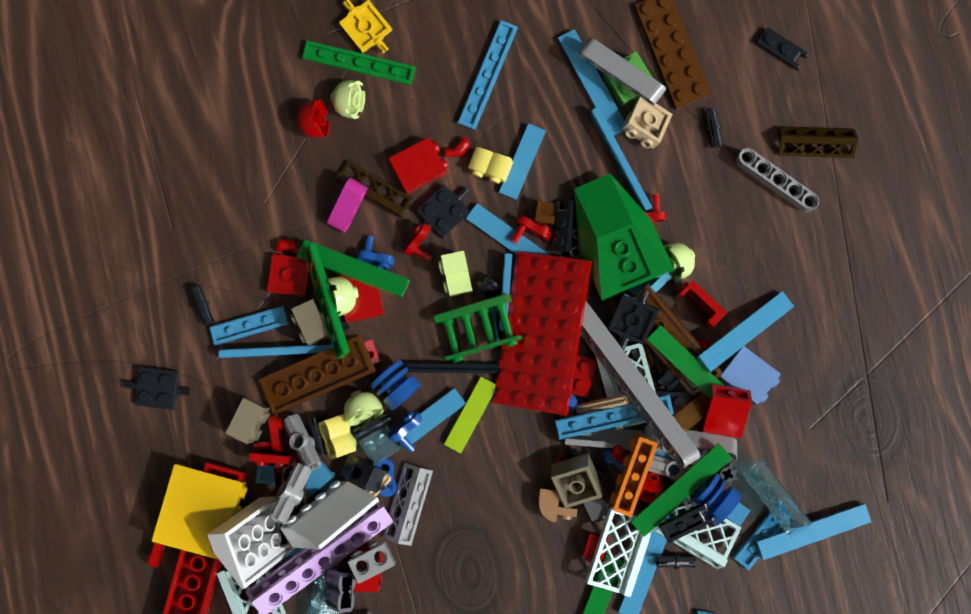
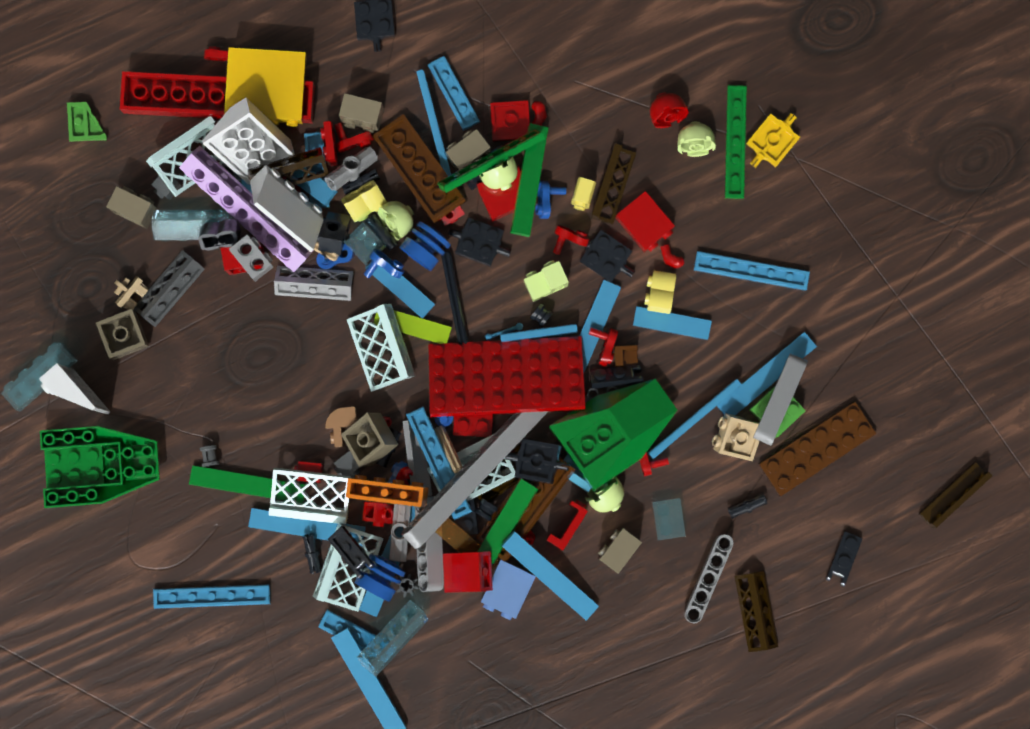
camera: 75 degrees right, 0 degrees up
(201, 304) = (464, 43): black pin -> none
(290, 493) = (300, 167): light grey piece -> none
(347, 205) = (590, 161): dark pink beam -> none
(378, 219) = (583, 194): none -> light yellow brick
(402, 331) = (479, 242): none -> black plate
(464, 314) = (508, 298): green fence -> none
(486, 434) = (393, 338): none -> light aqua fence
(681, 489) = (381, 541): green tile -> none
(712, 205) = (668, 519): none -> clear light blue plate
(734, 259) = (619, 550): none -> dark tan brick

